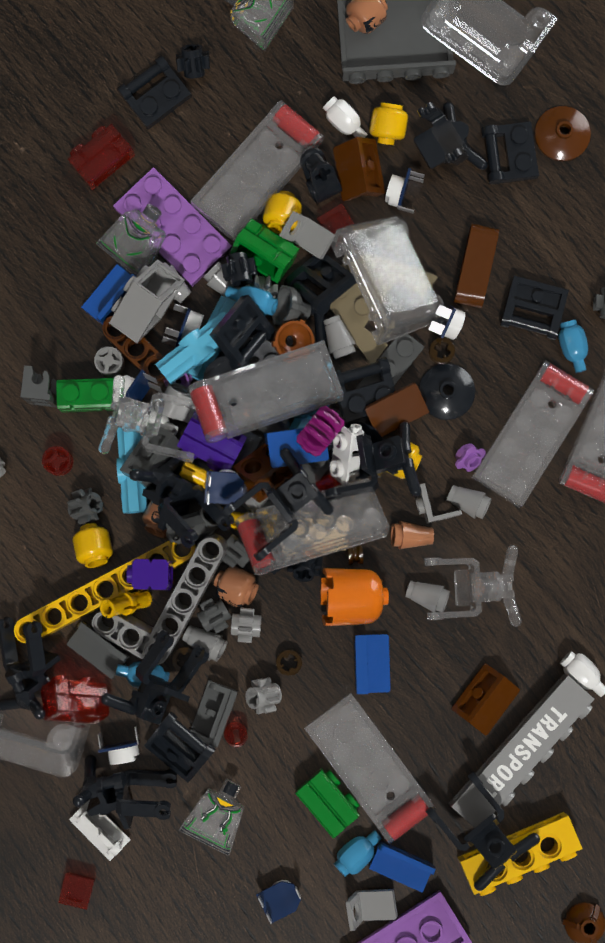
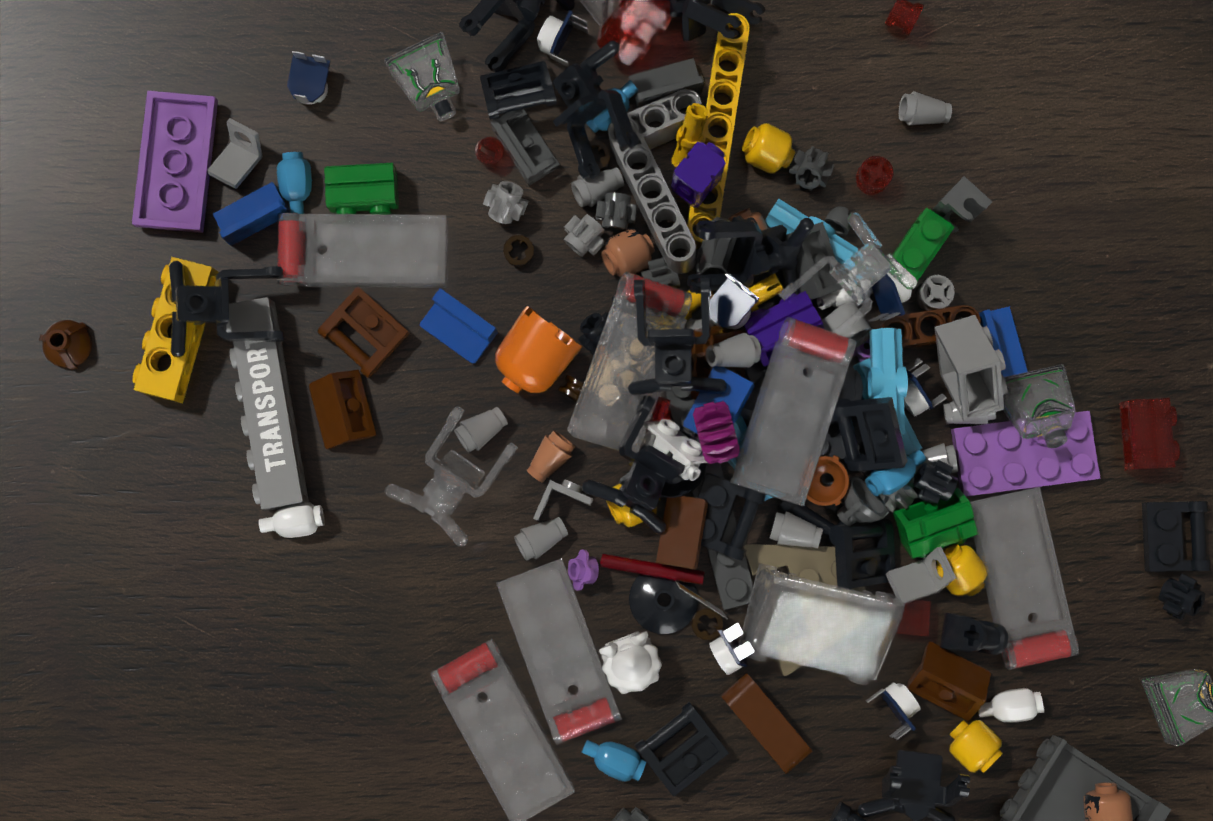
camera: 125 degrees right, 0 degrees up
(106, 462) = (838, 219): none -> dark grey hinge
(254, 460) = (736, 351): none -> light grey cone
(414, 725) = (371, 323): none -> reddish brown plate
(429, 362) = (701, 599): none -> white sticker
(435, 414) = (652, 569): none -> dark red bar
(505, 380) = (631, 662): none -> white animal

